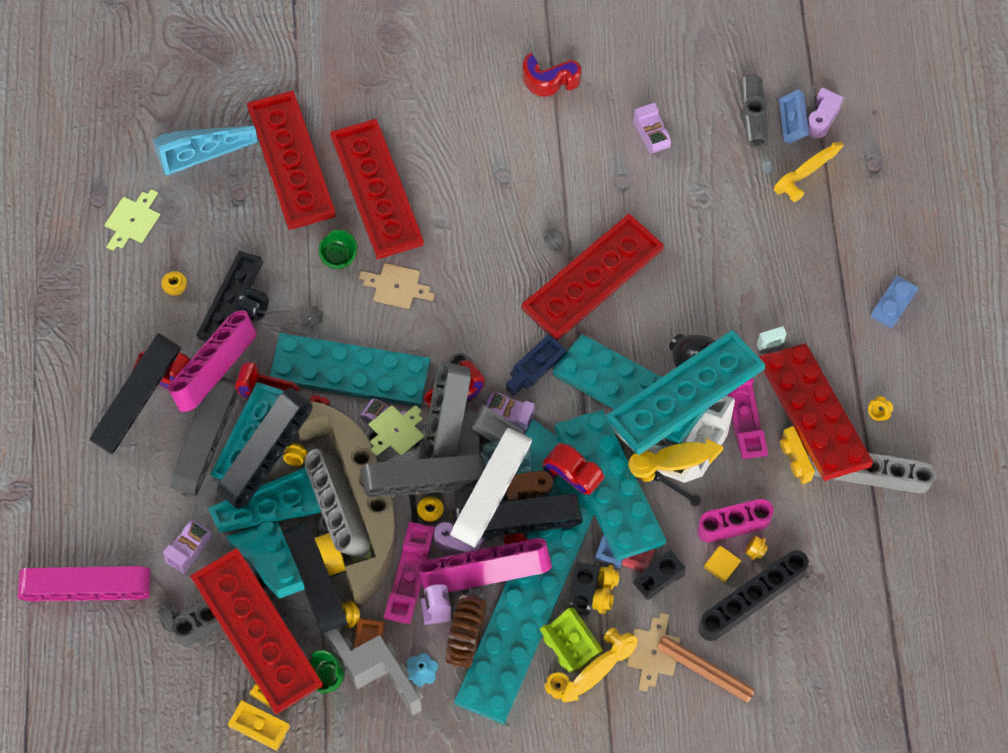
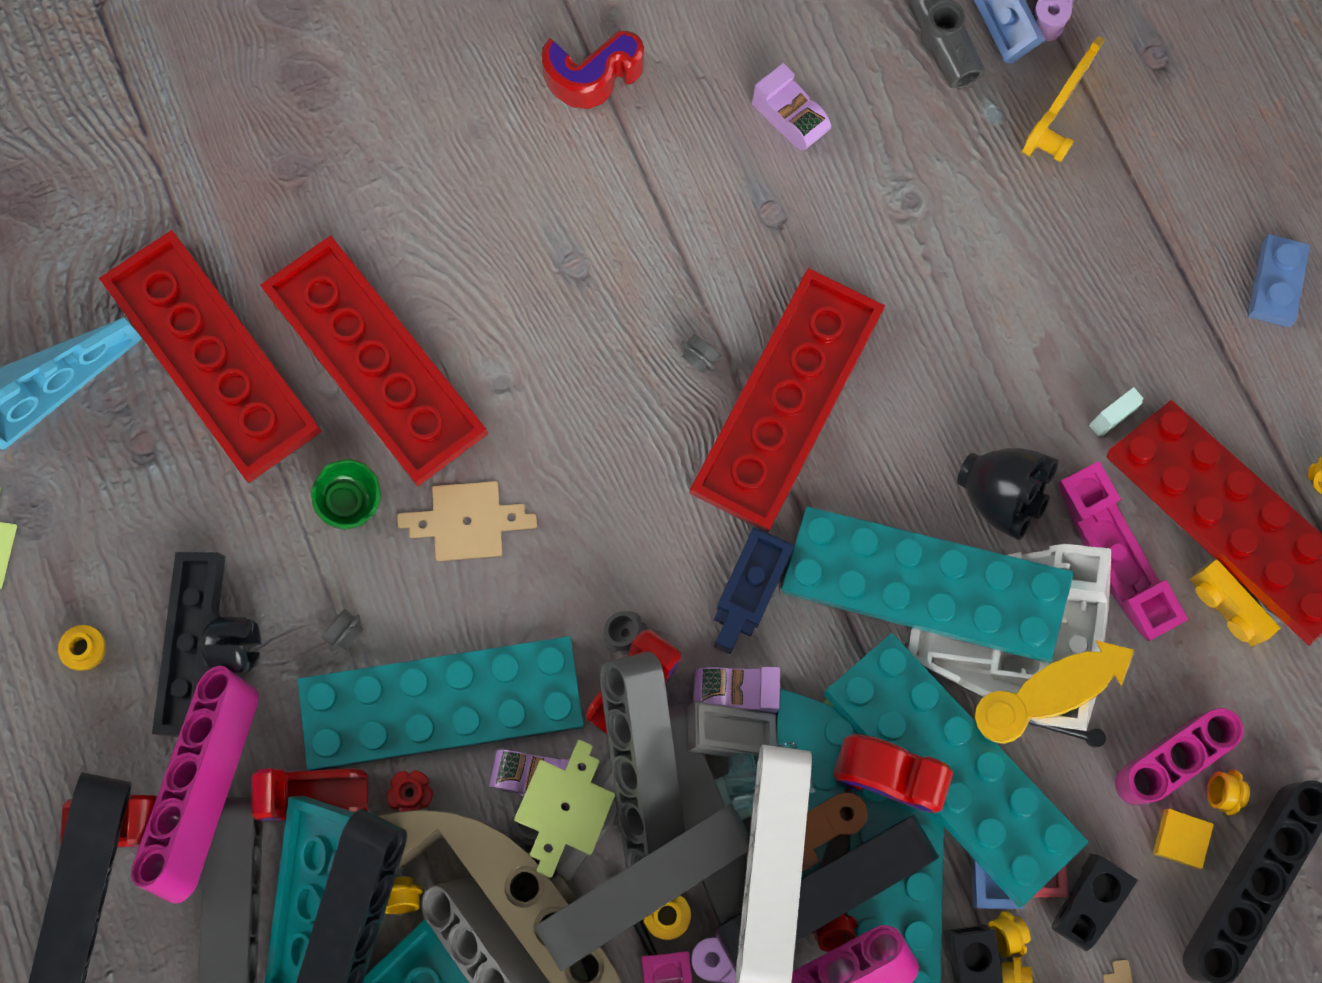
camera: 20 degrees left, 10 degrees up
(685, 392) = (1036, 572): teal plate -> none

